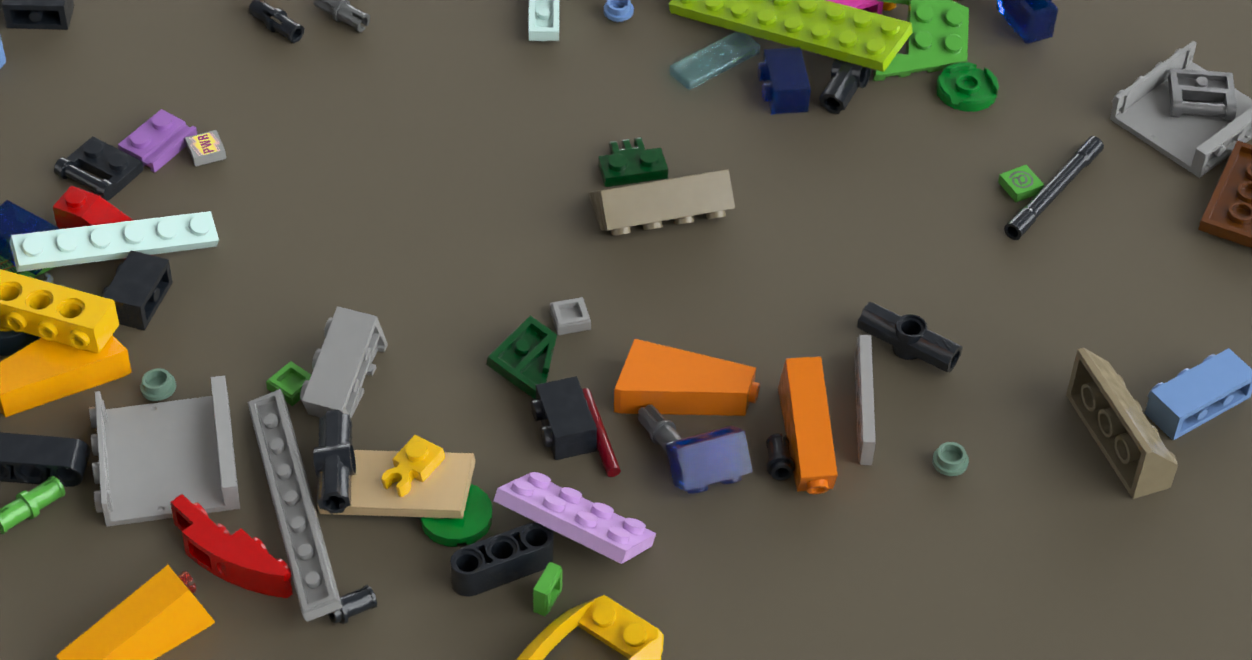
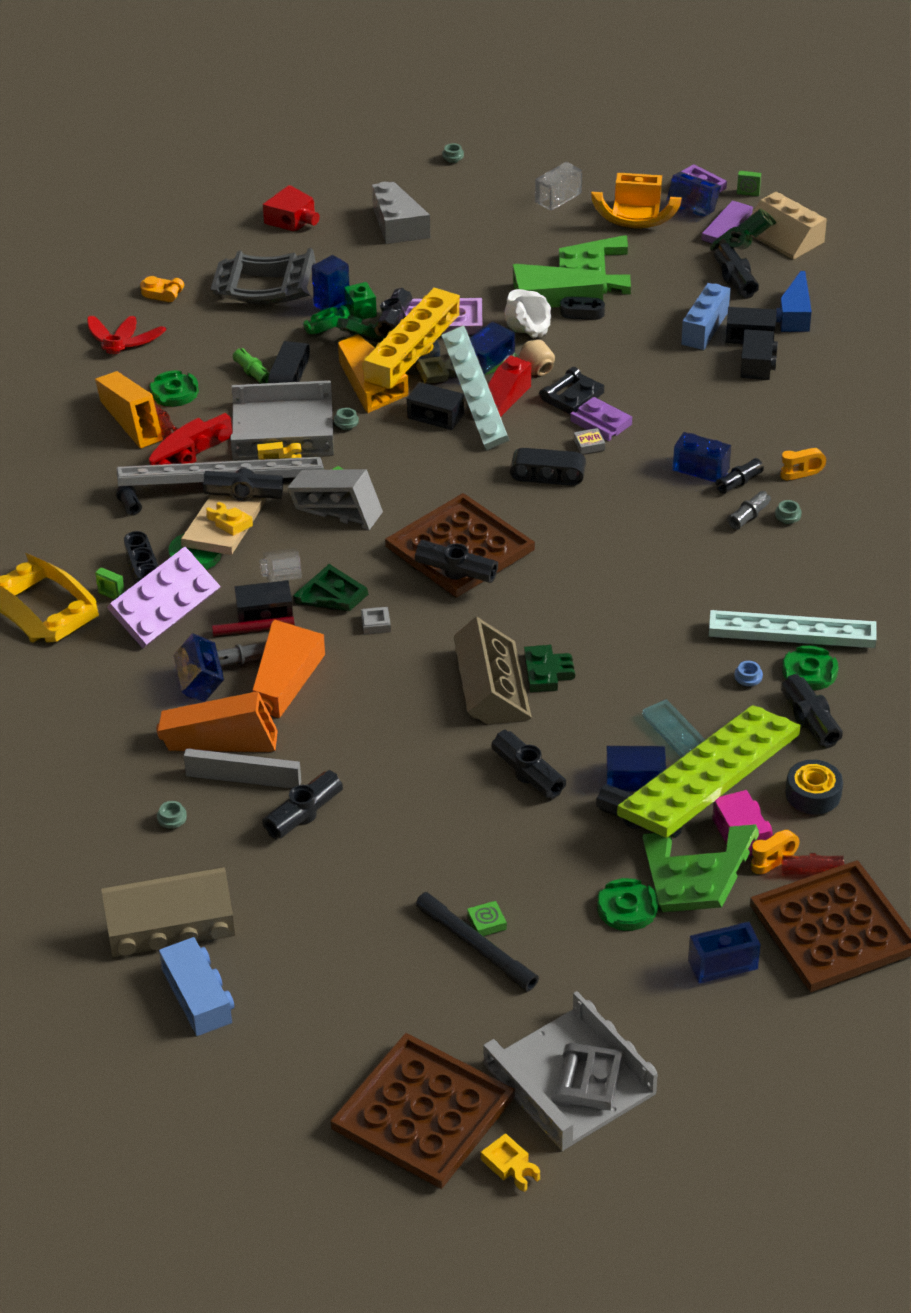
camera: 100 degrees right, 5 degrees down
(34, 195) = (539, 356): none -> tan head
(69, 600) = (174, 388): none -> green tile
(249, 450) = (276, 451): none -> yellow plate
(251, 44) = (701, 457): none -> clear blue brick
(267, 176) = (548, 466): none -> black beam
(425, 247) = (462, 523): none -> reddish brown plate
(486, 227) = (456, 561): none -> black piece
(507, 394) = (281, 565): none -> clear brick
(799, 159) = (528, 764): none -> black piece

